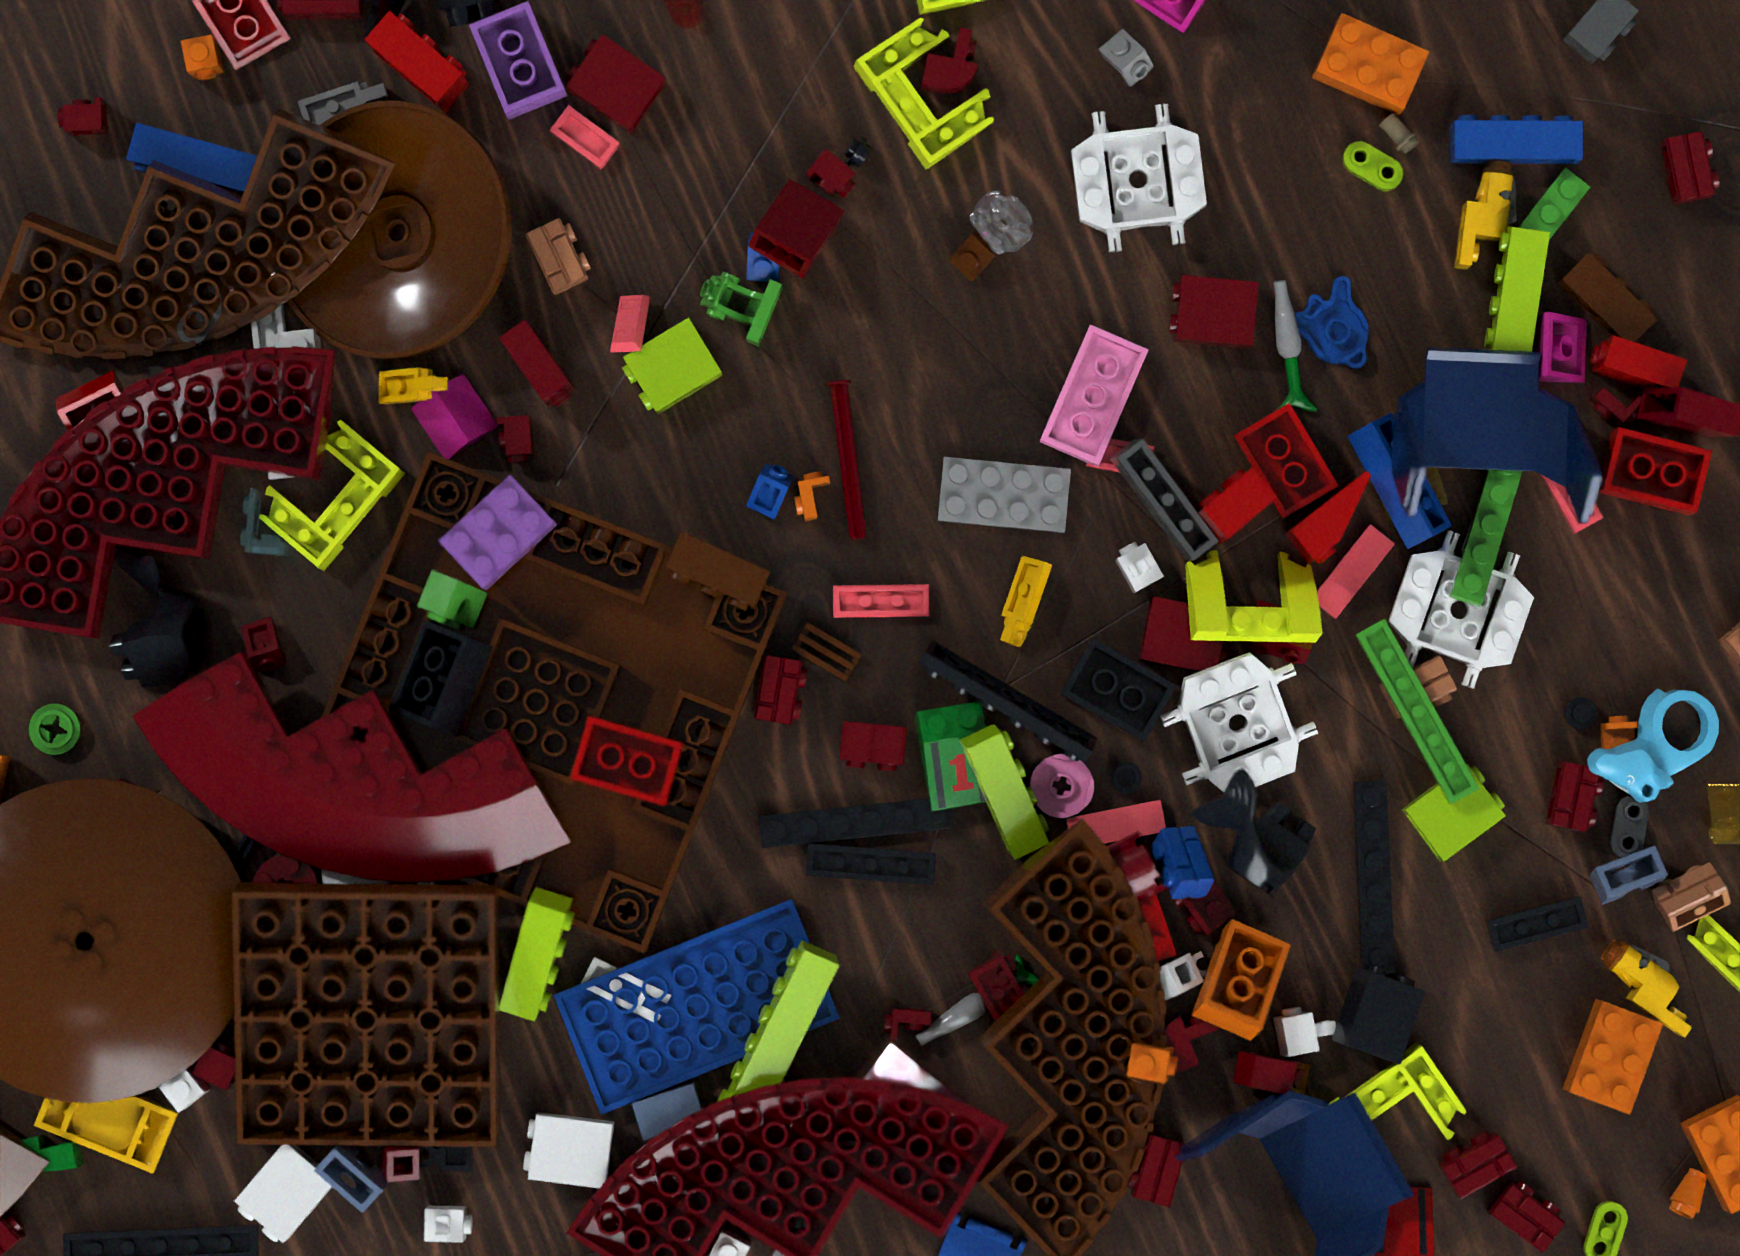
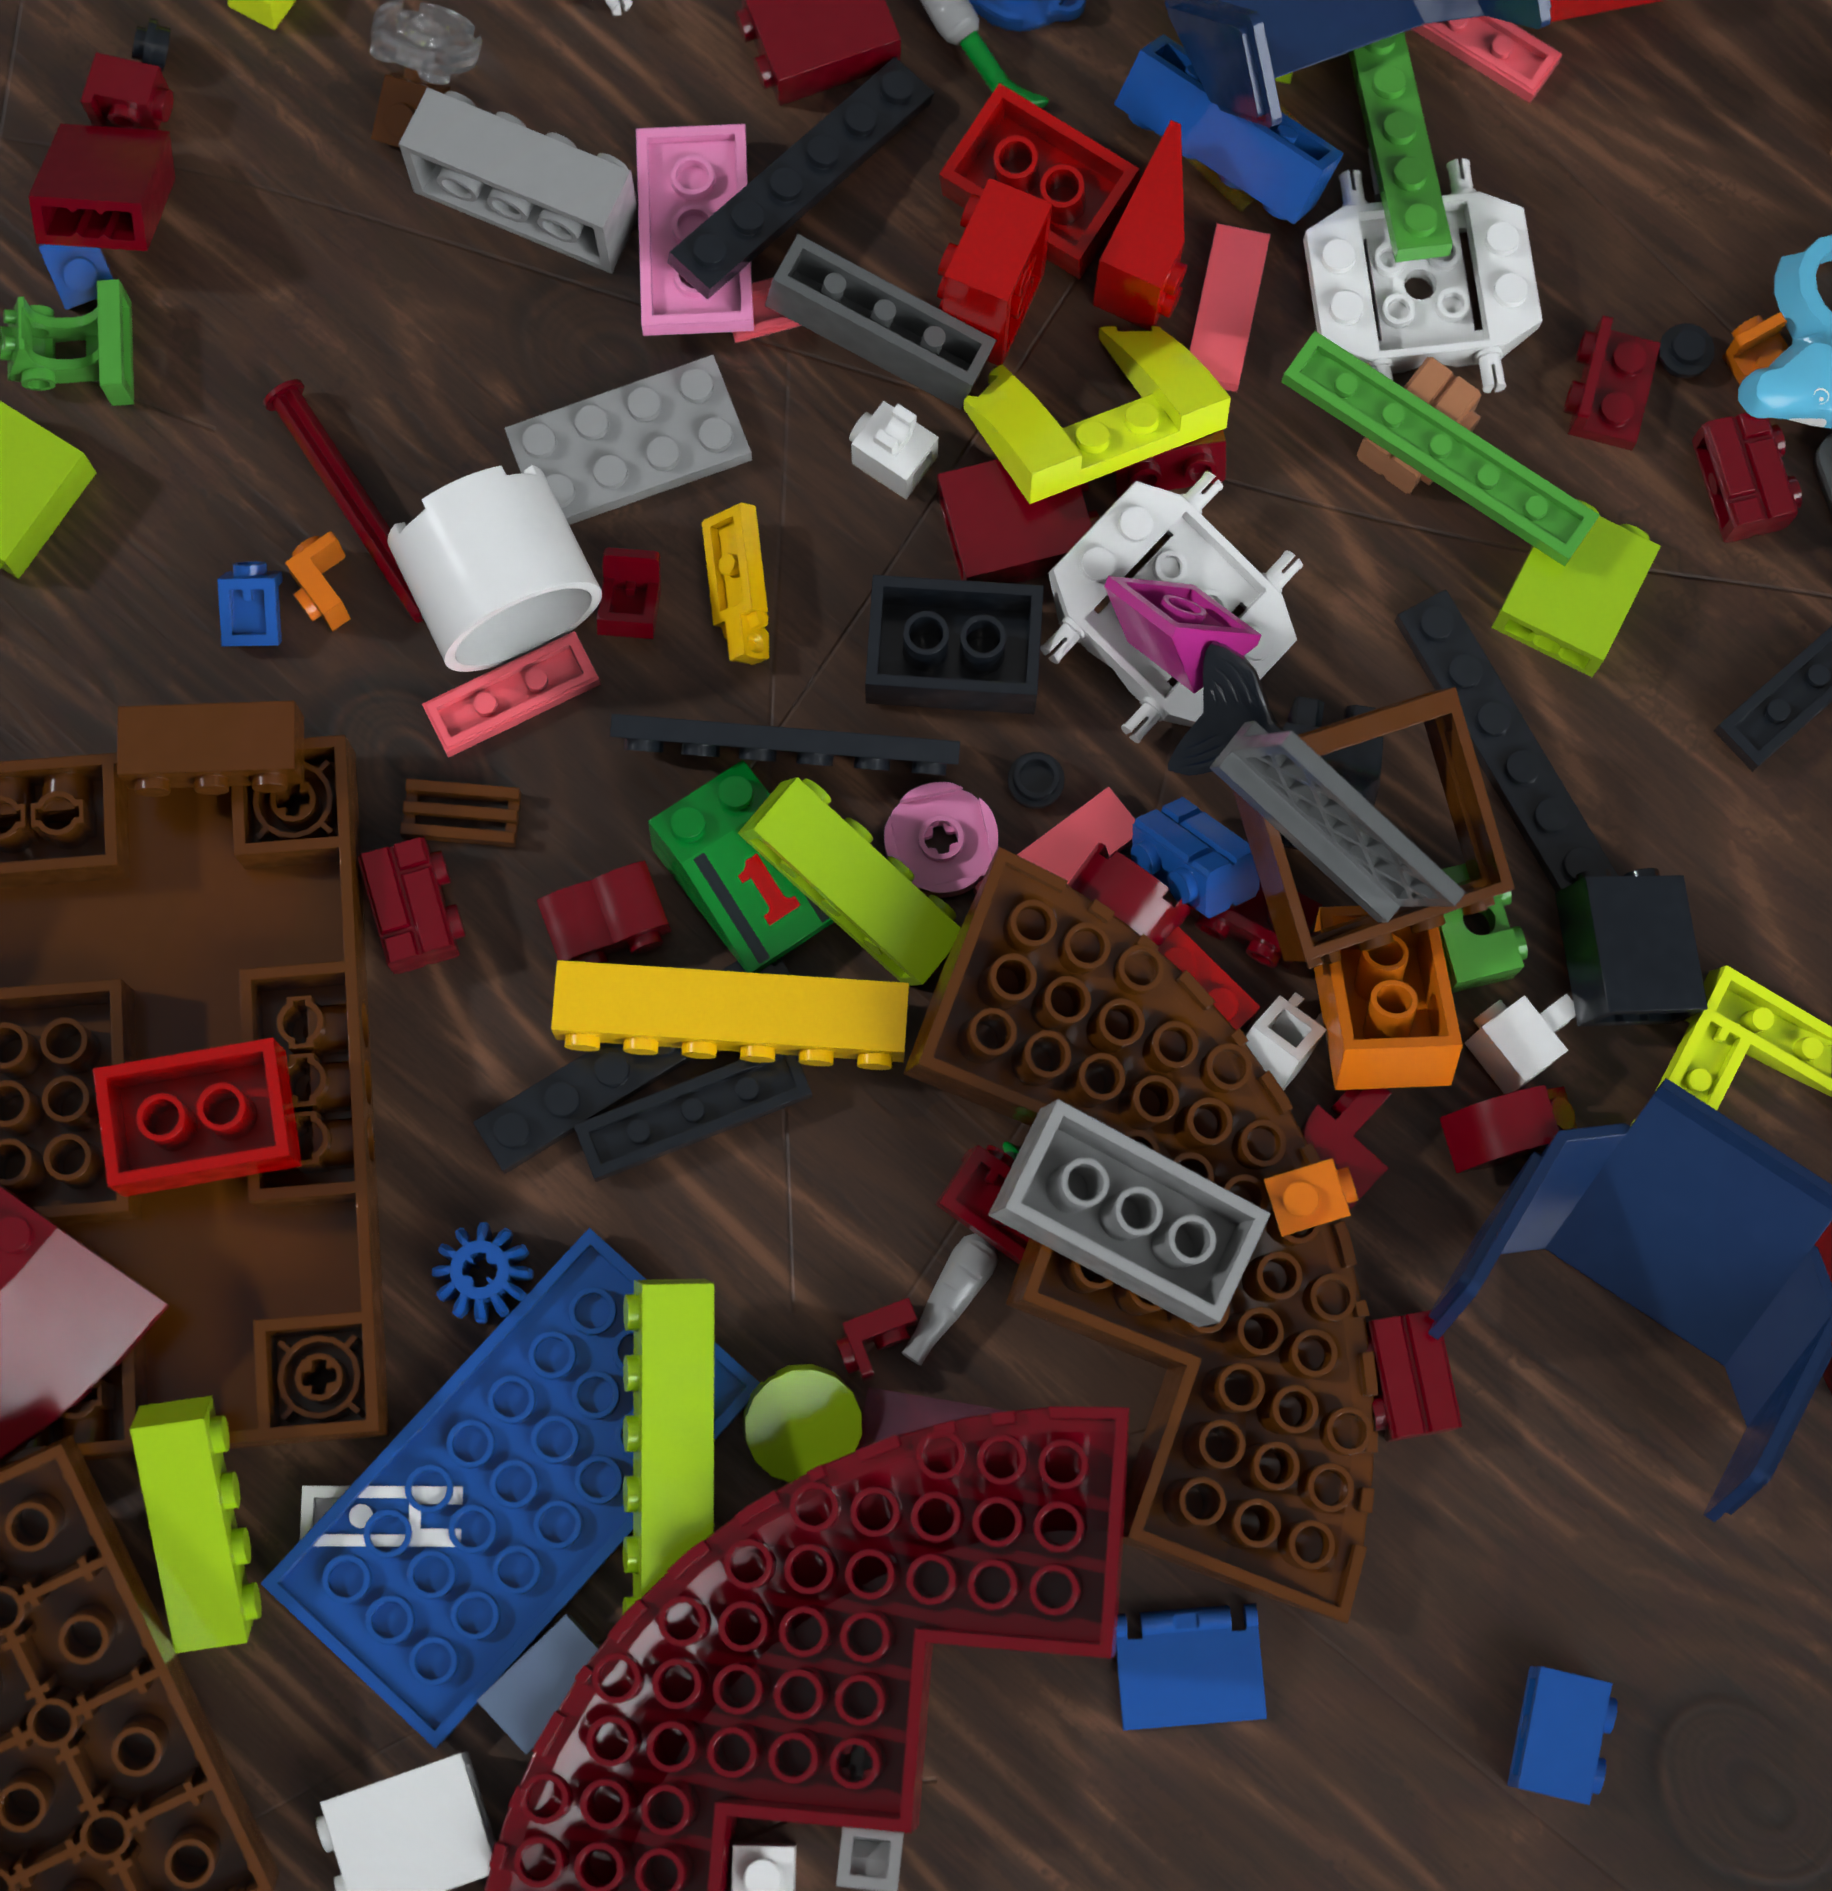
camera: 30 degrees left, 10 degrees down
(739, 892) = (497, 1257): none -> blue gear
(850, 1046) = (801, 1421): none -> lime tile
(902, 541) = (494, 568): none -> white brick
(913, 828) = (730, 1013): none -> yellow brick
(965, 580) = (629, 593): none -> dark red bracket
(1015, 329) = (520, 178): none -> light grey brick
(1055, 1033) = (1129, 1214): none -> light grey brick
(1163, 395) = (800, 178): none -> black plate
(1234, 744) = (1176, 625): none -> dark pink slope
(1247, 894) = (1332, 823): none -> dark grey fence
(1280, 847) = (1467, 805): none -> reddish brown window
(1303, 942) = (1486, 958): none -> bright green brick
(1531, 713) = (1613, 386): none -> dark red bracket

